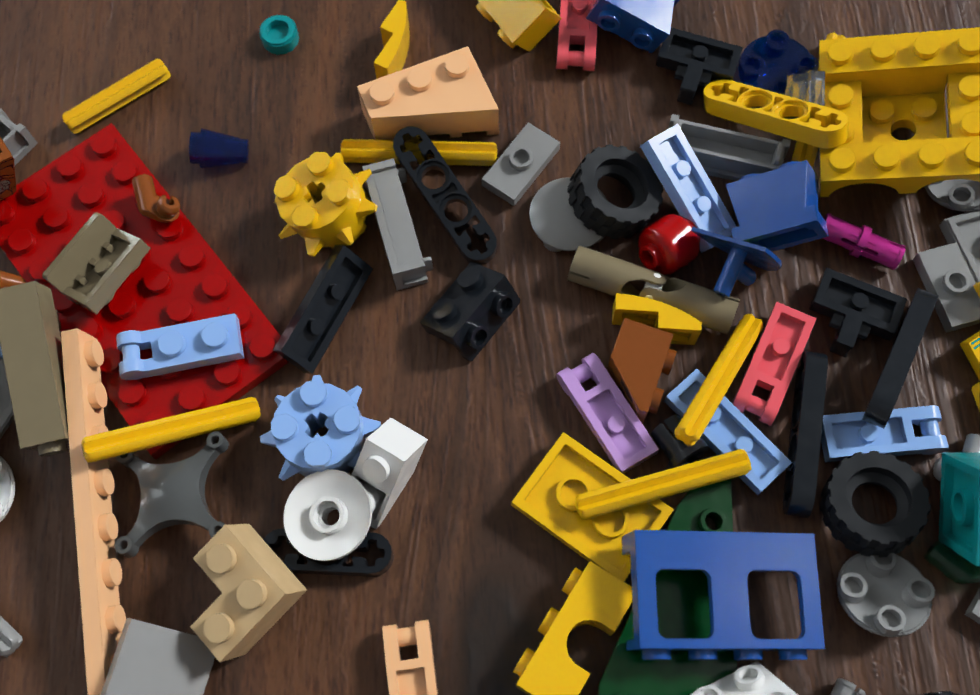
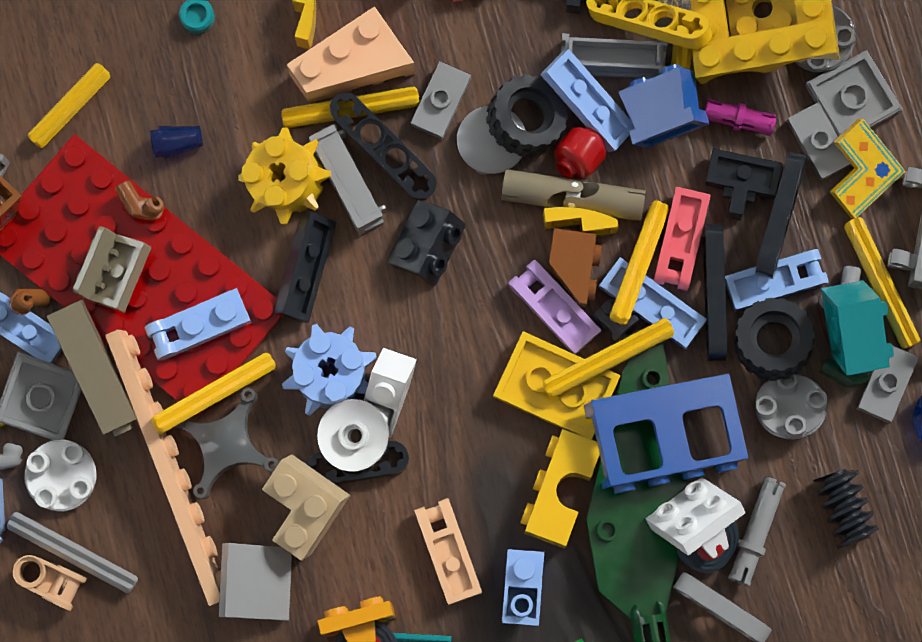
camera: 10 degrees left, 10 degrees up
(734, 266) = (636, 165): blue shield -> none

